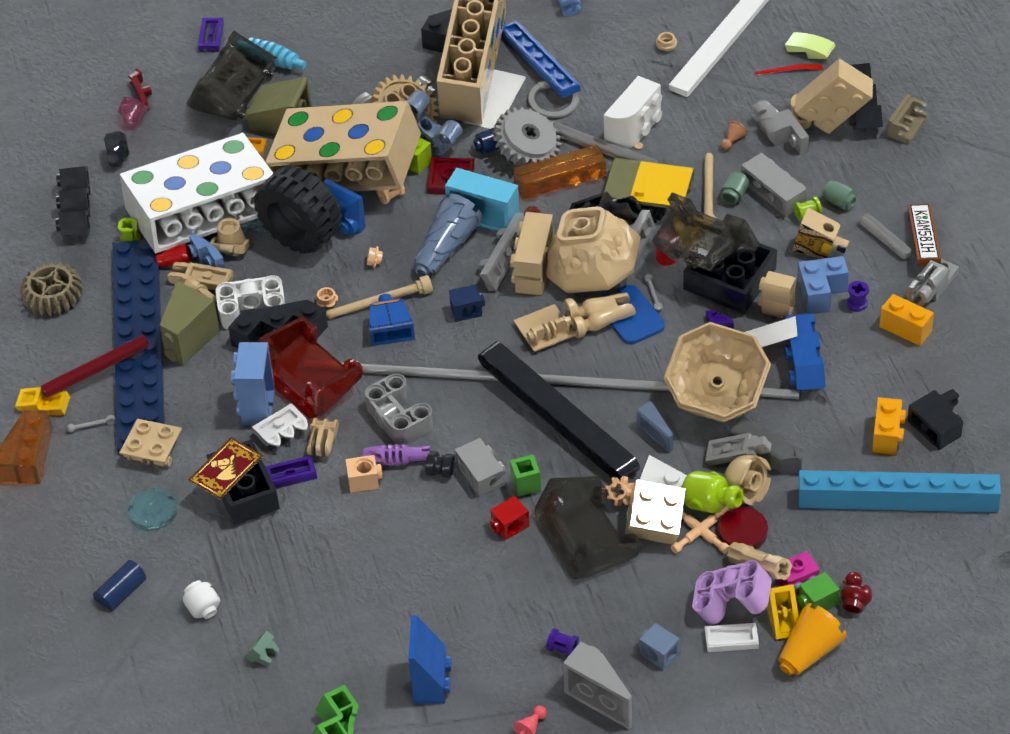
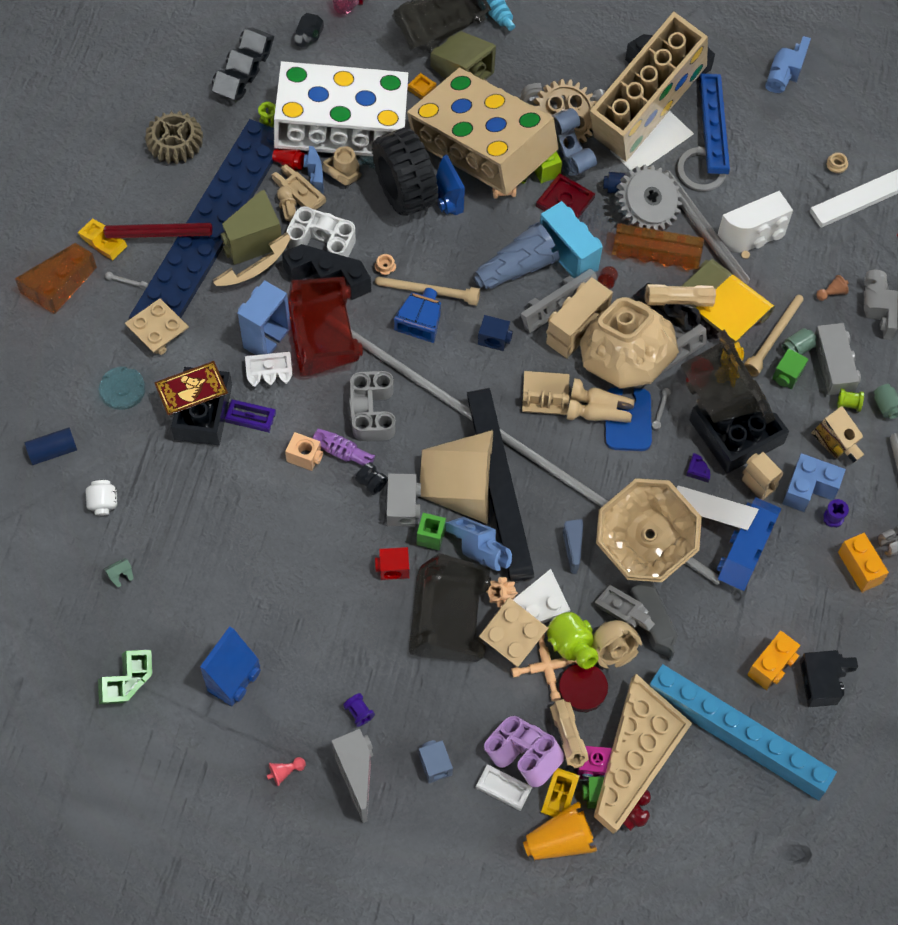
camera: 25 degrees right, 15 degrees up
(221, 327) = (229, 276): none -> tan slope
(323, 436) = (293, 398): tan arm -> none
(374, 256) = (449, 245): light nougat plate -> none
(519, 421) = (459, 475): none -> tan wedge
(577, 461) = (480, 543): none -> medium blue plate
(610, 191) = (696, 295): none -> tan axle
(742, 206) = (790, 369): none -> bright green brick
(828, 541) = (642, 745): none -> tan wing

